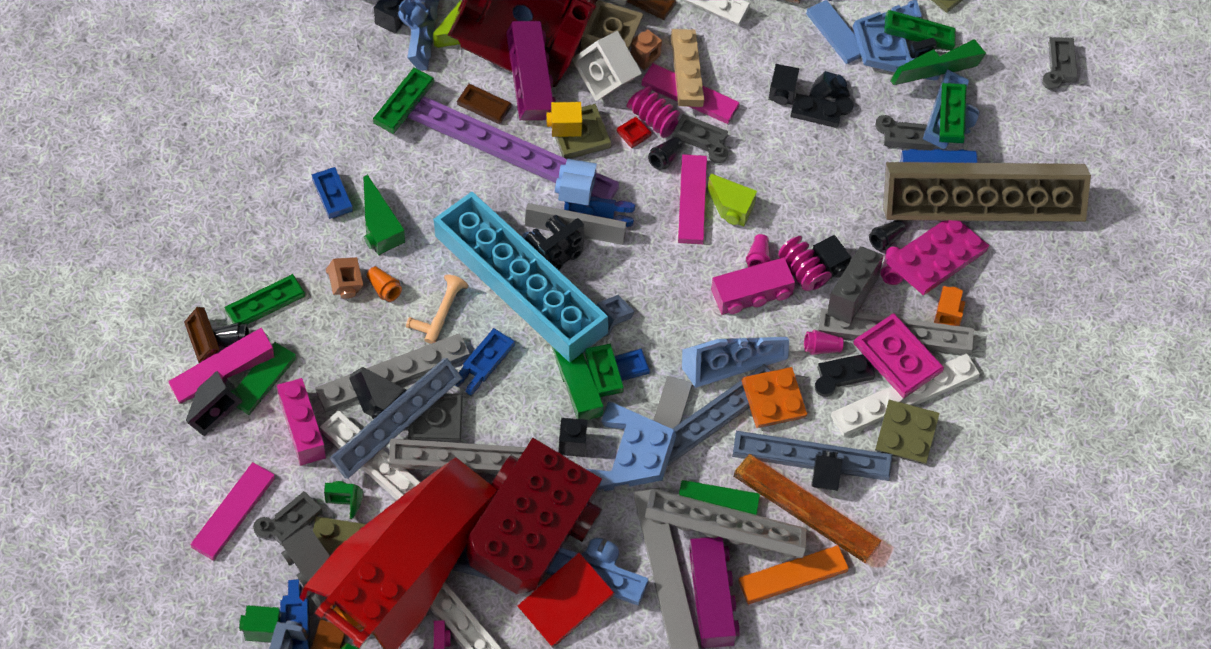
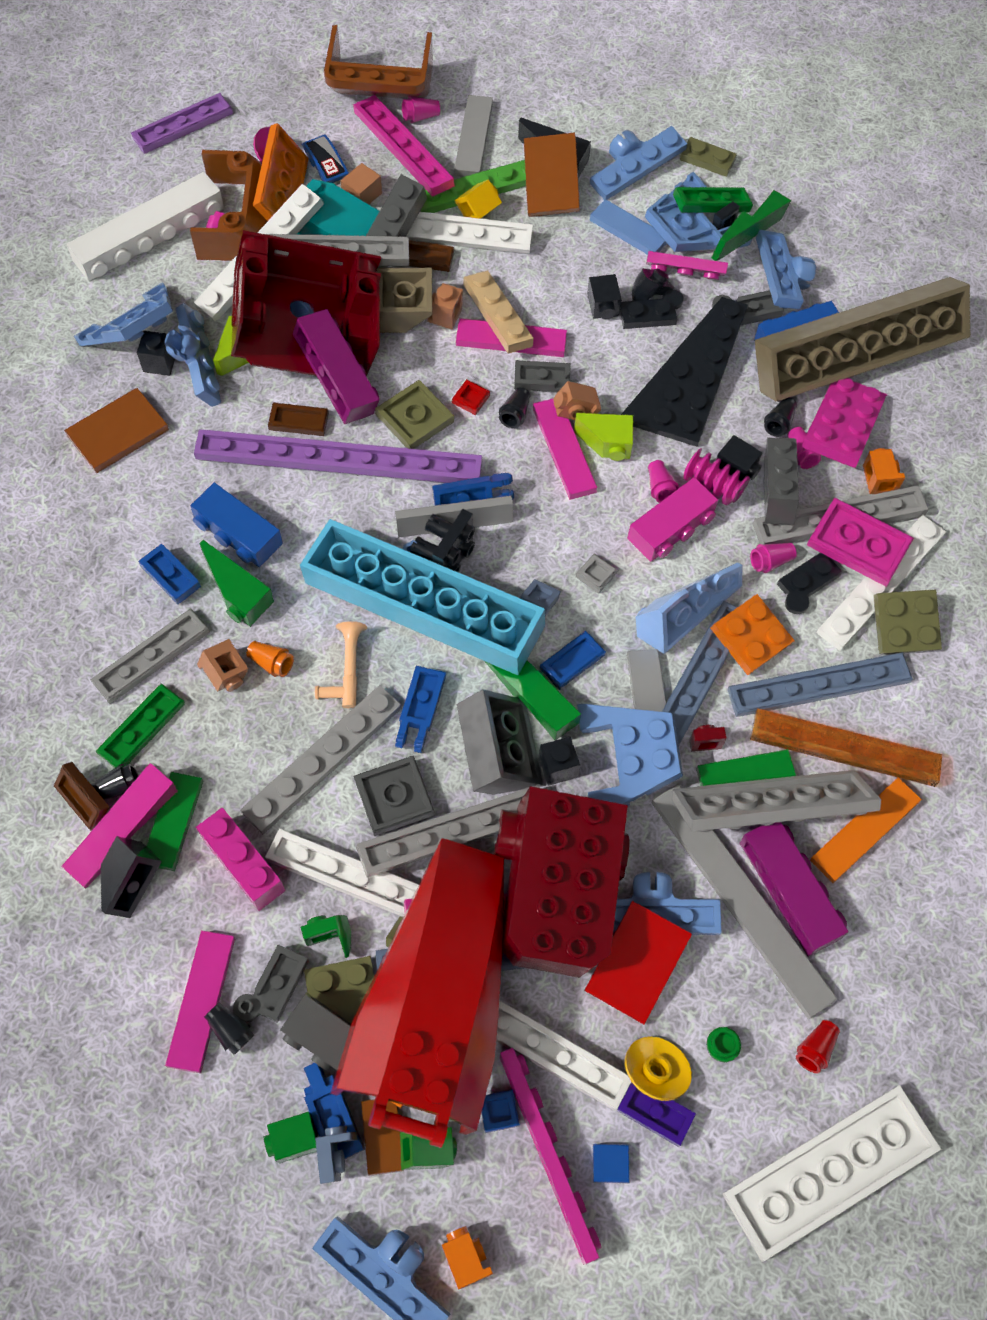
camera: 20 degrees left, 5 degrees up
(245, 535) = (228, 1028): none -> black cone
(293, 250) = (150, 656): none -> light grey tile
(335, 64) = (116, 430): none -> dark orange tile
(374, 391) = (319, 795): black slope -> none
(395, 418) = (350, 817): sand blue tile -> none
(398, 172) = (236, 525): none -> blue brick
(403, 100) = (210, 444): green tile -> none
(532, 406) = (498, 743): none -> flat silver slope
(565, 119) = (397, 405): yellow brick -> none
(576, 181) = (439, 469): light blue brick -> none
(604, 370) = (560, 670): green plate -> none
(606, 66) = (417, 334): white brick -> none
(654, 111) = (484, 368): dark pink piece -> none
(671, 308) = (596, 573): none -> light grey tile
(698, 462) = (707, 738): none -> dark red plate
(716, 162) = (575, 399): none -> nougat brick
(817, 183) = (686, 385): none -> black wing
(827, 470) = (849, 697): black brick -> none
(868, 80) = (687, 265): none -> dark pink plate
(952, 113) = (793, 269): green tile -> none
(1061, 63) = (862, 188): dark grey hinge -> none

